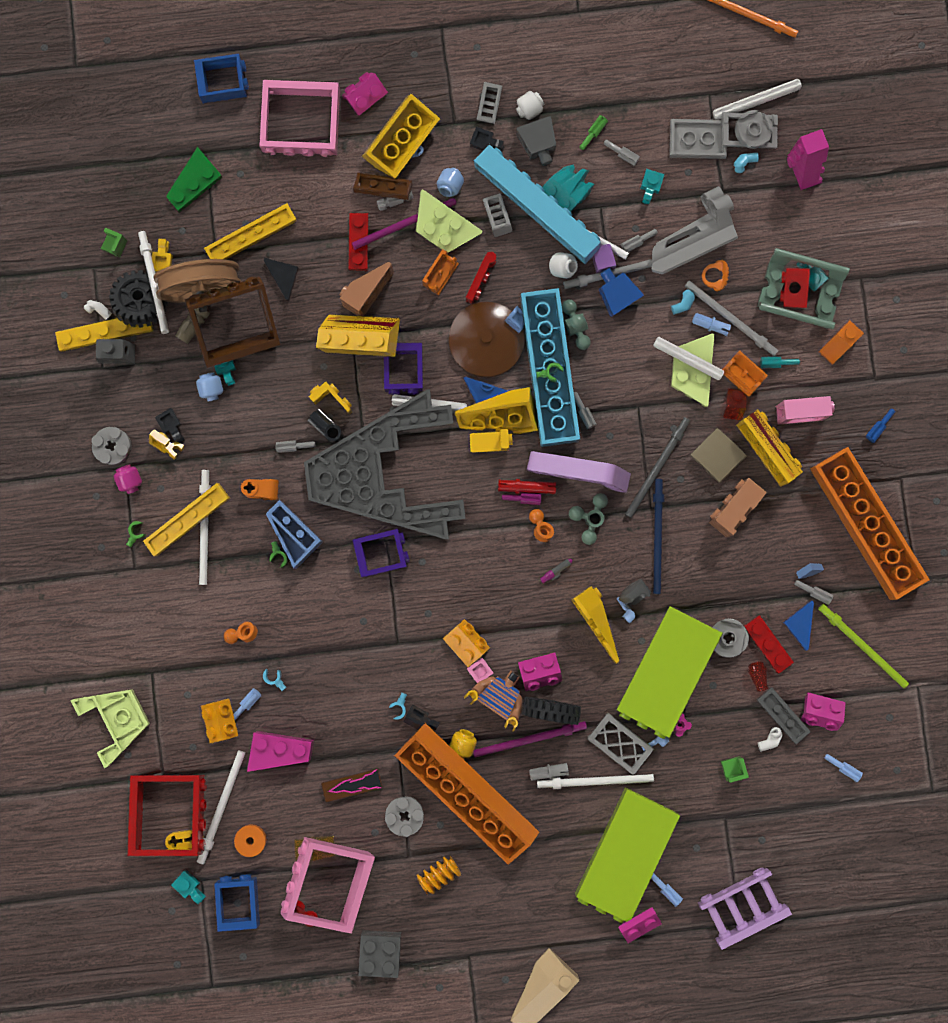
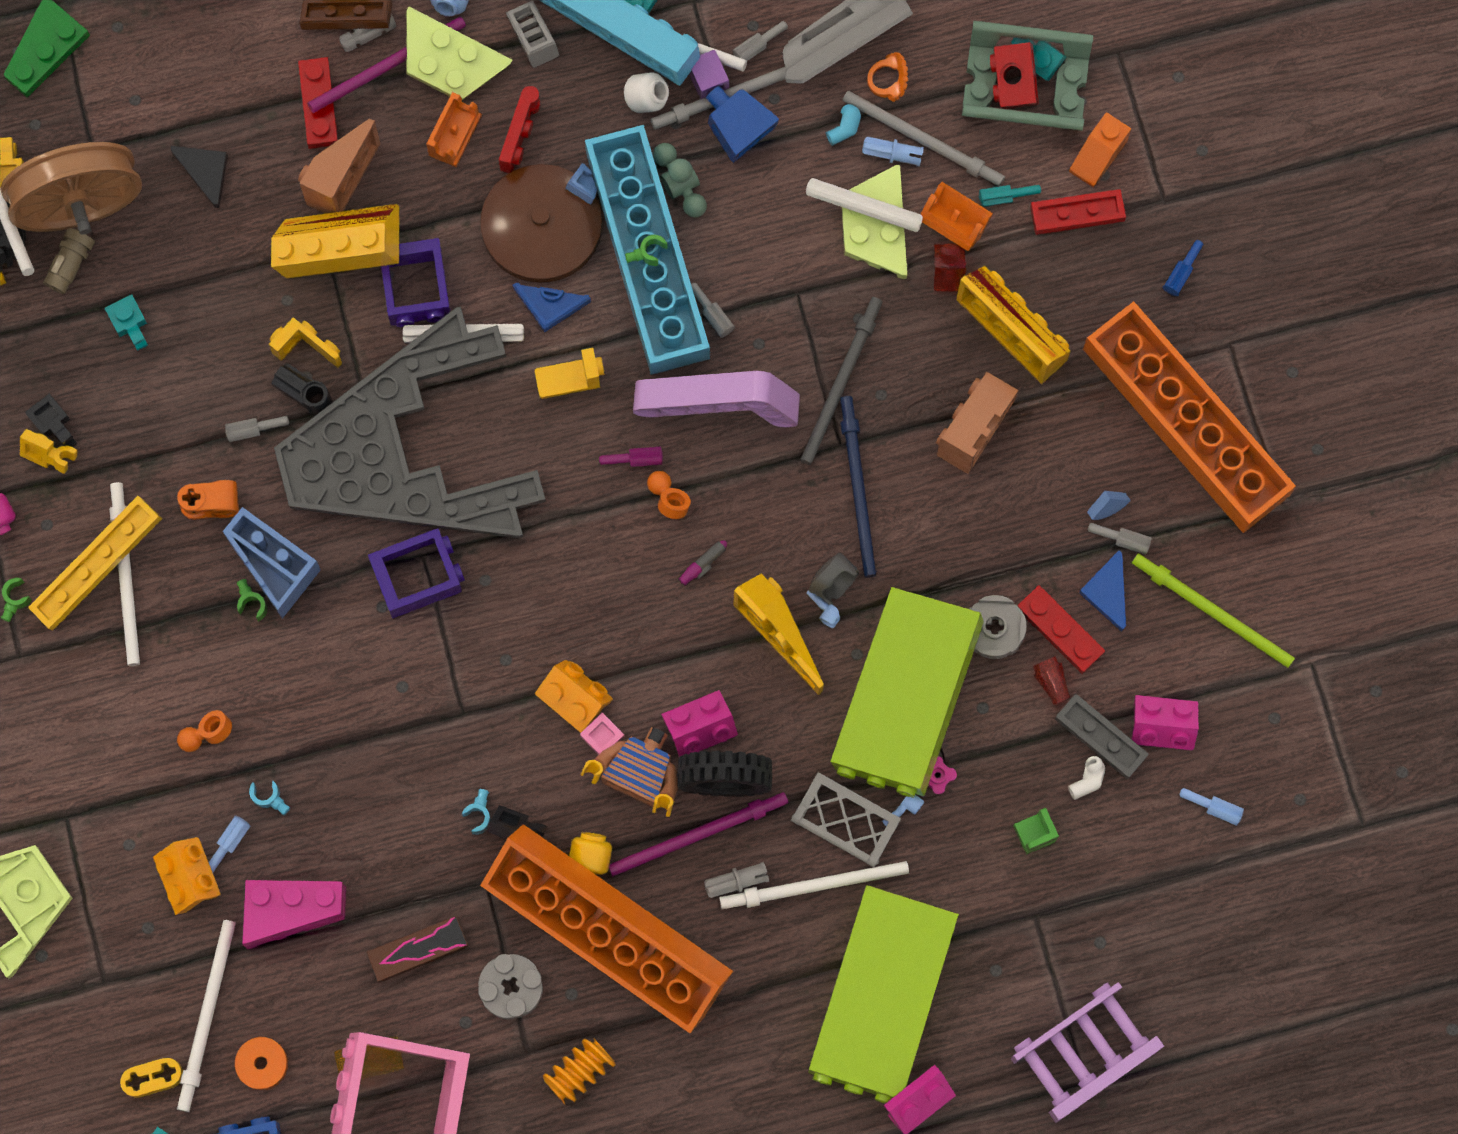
camera: 10 degrees left, 10 degrees down
(136, 814) = (66, 1038): red window -> none
(209, 386) = (107, 352): light blue head -> none
(243, 347) = (155, 284): reddish brown window -> none
(251, 233) = (153, 106): yellow plate -> none
(509, 411) = (594, 321): yellow wedge -> none
(526, 486) = (635, 438): red pin -> none
(576, 513) = (723, 467): sand green piece -> none
(668, 891) = (957, 1044): light blue axle -> none
(718, 455) = (934, 347): dark tan slope -> none
(804, 410) = (1058, 257): bright pink window -> none
(820, 380) = (1078, 211): none -> red plate

